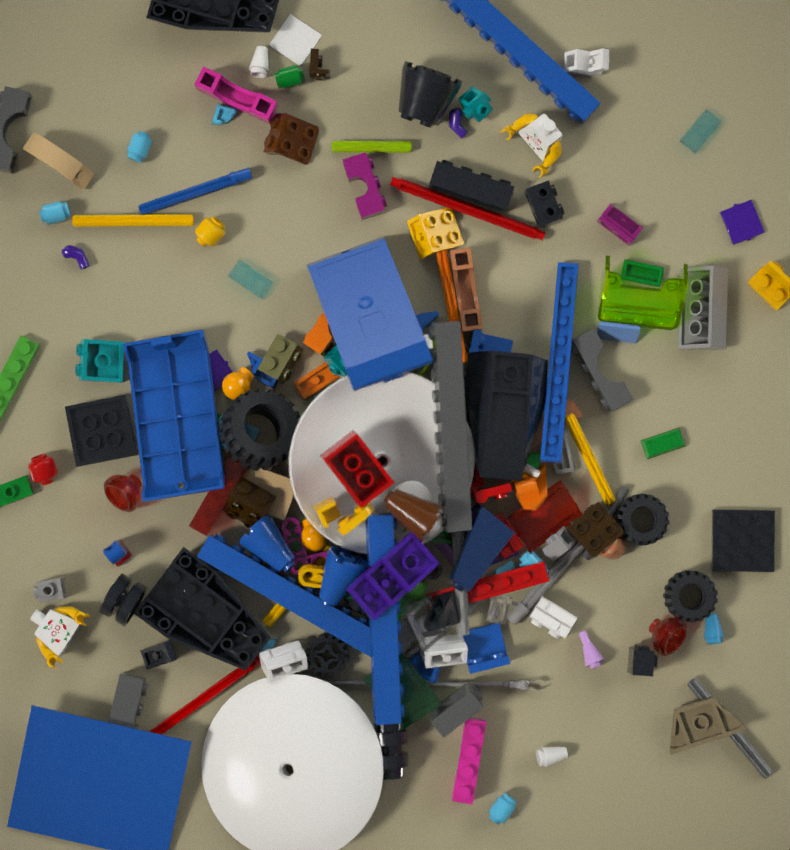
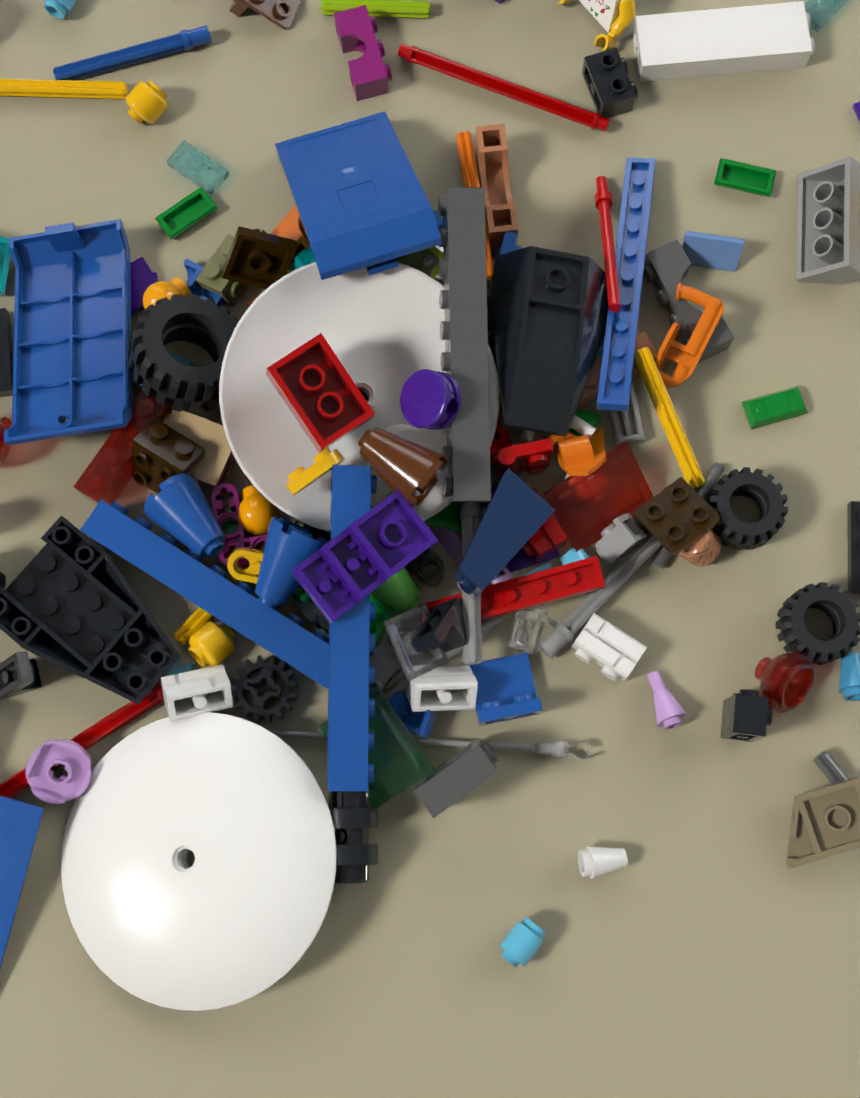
camera: 10 degrees right, 10 degrees down
(192, 705) = (53, 753): none -> lavender plate
(245, 315) = (186, 213): none -> green tile
(289, 627) = (211, 644): none -> yellow head
(303, 358) = (258, 257): none -> dark brown tile
(327, 511) = (272, 458): yellow panel -> none
(429, 467) = (430, 399): none -> dark purple head
(435, 232) = (453, 111): yellow bracket -> none
(469, 760) = (472, 862): dark pink arch -> none
(471, 186) = (510, 57): black brick -> none
(542, 298) = (603, 203): none -> red bar
(603, 414) = (689, 355): none -> orange piece
(619, 224) = (712, 115): magenta hinge -> none
(625, 168) = (722, 41): none -> white brick
(642, 305) = (761, 223): clear neon green windscreen -> none

